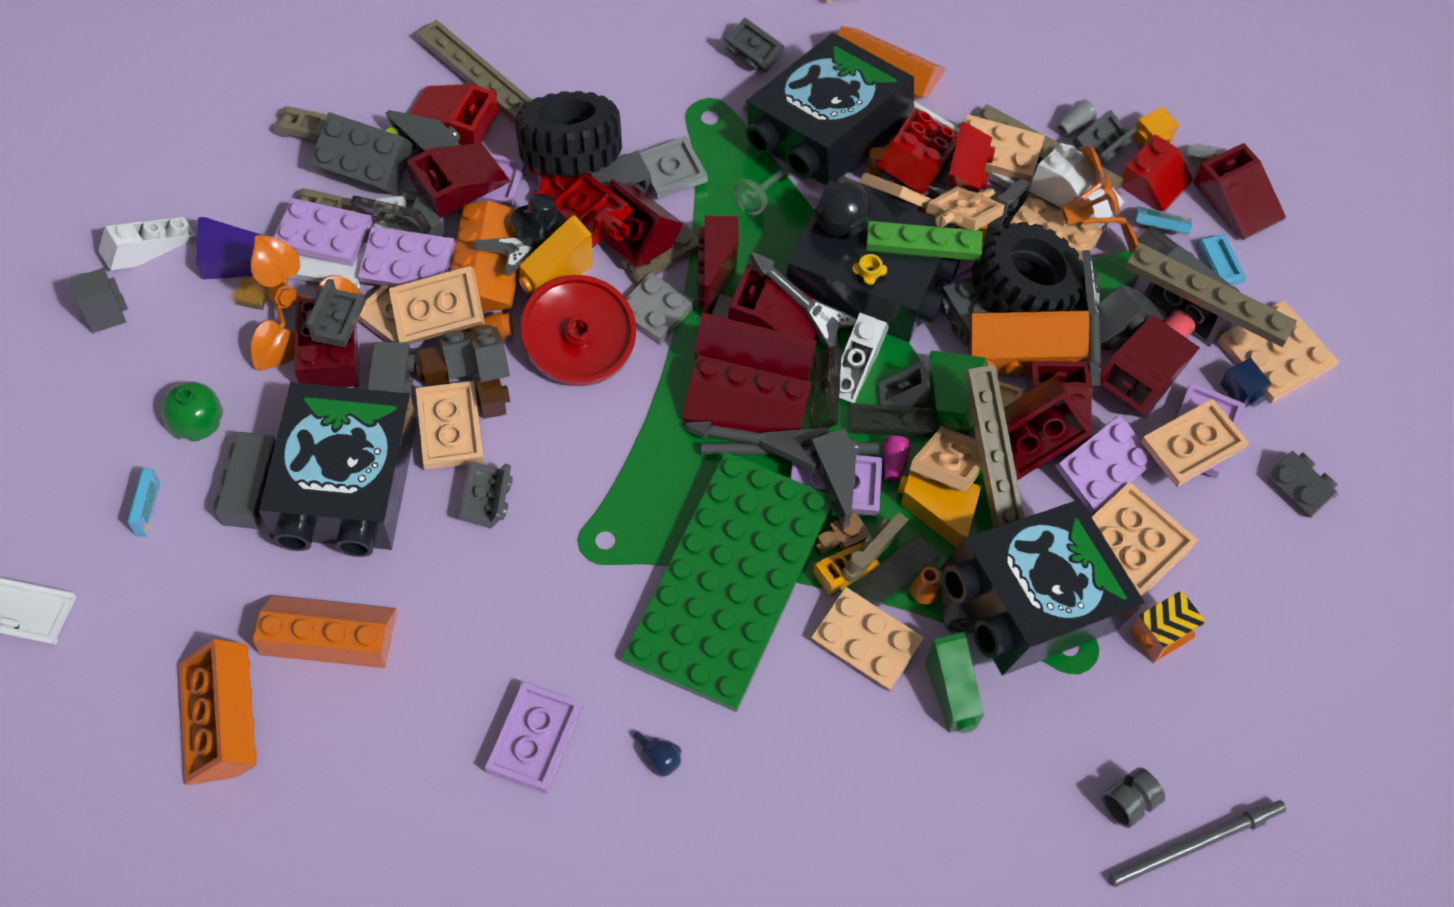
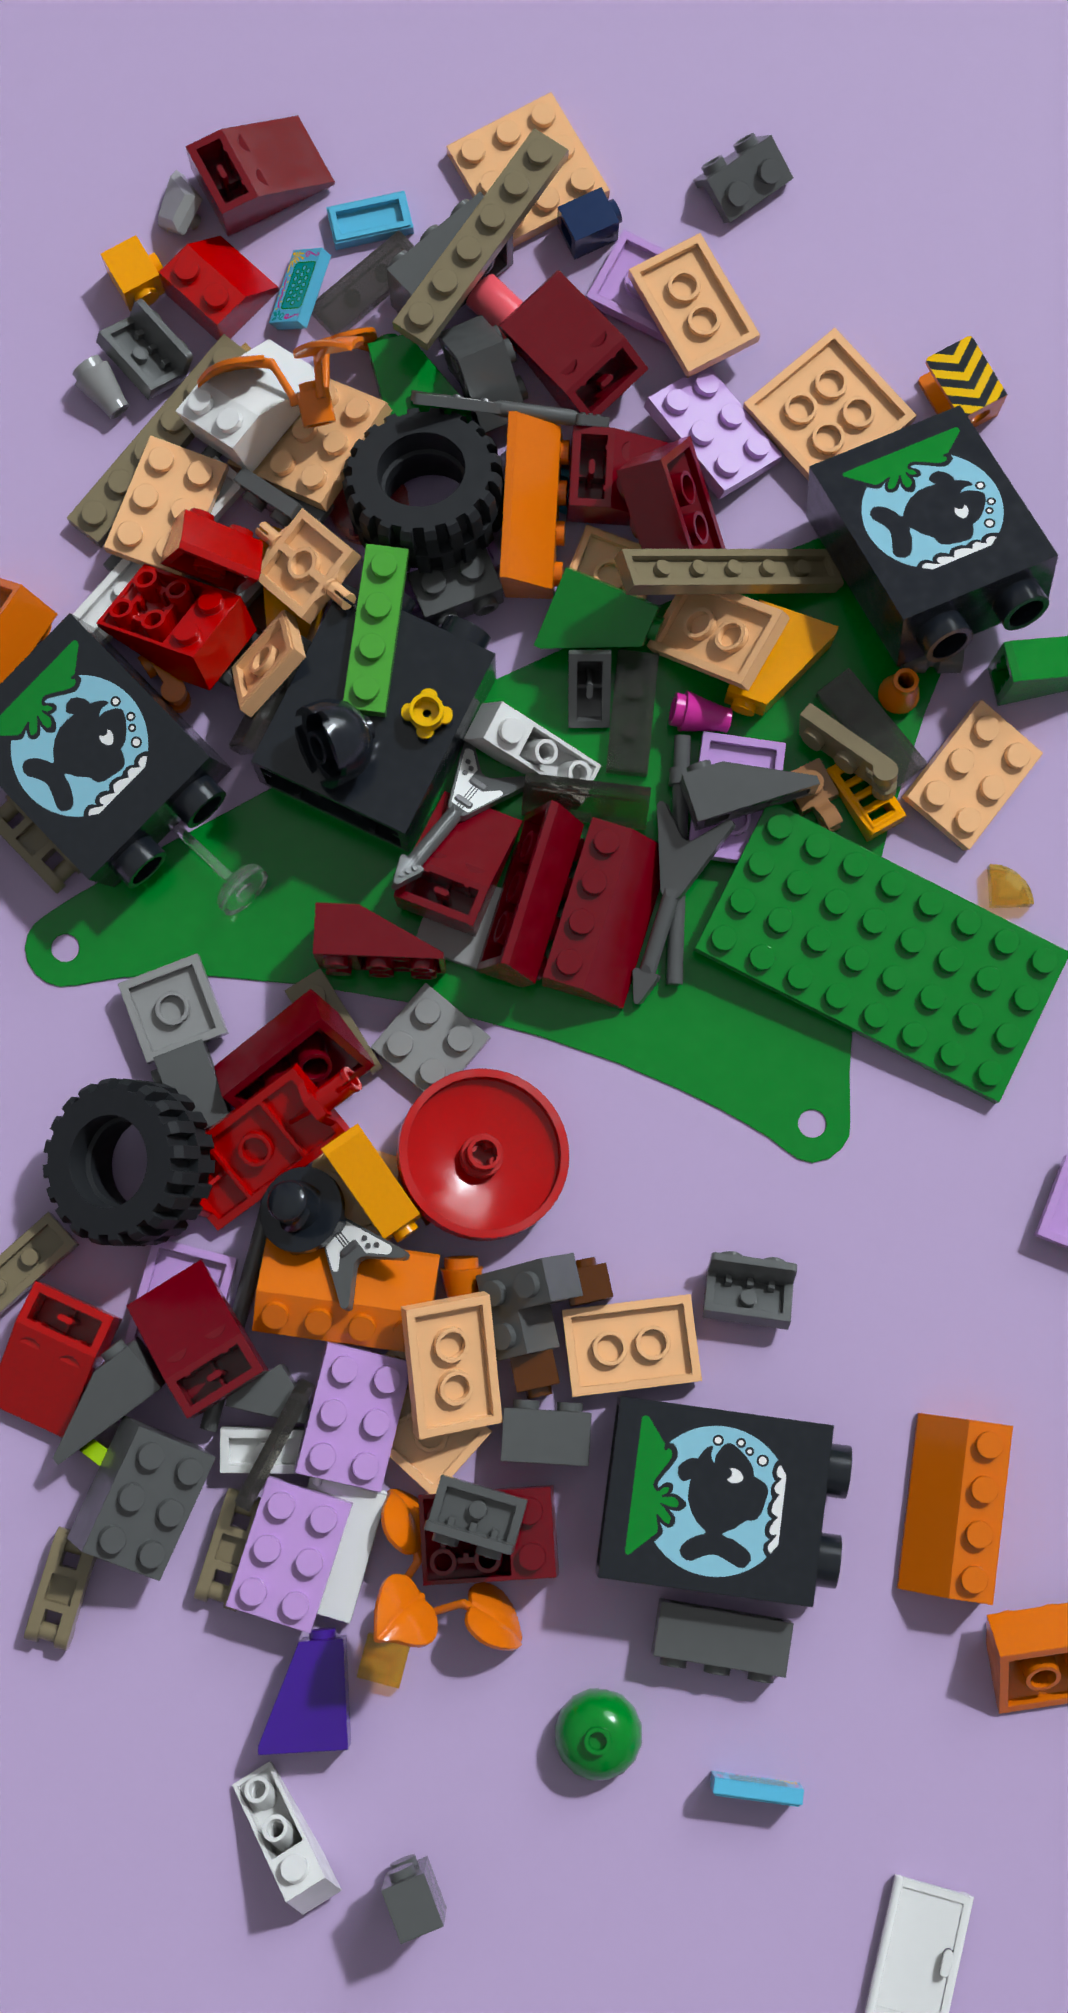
camera: 85 degrees left, 20 degrees up
(783, 666) = (1007, 888): none -> clear yellow tile

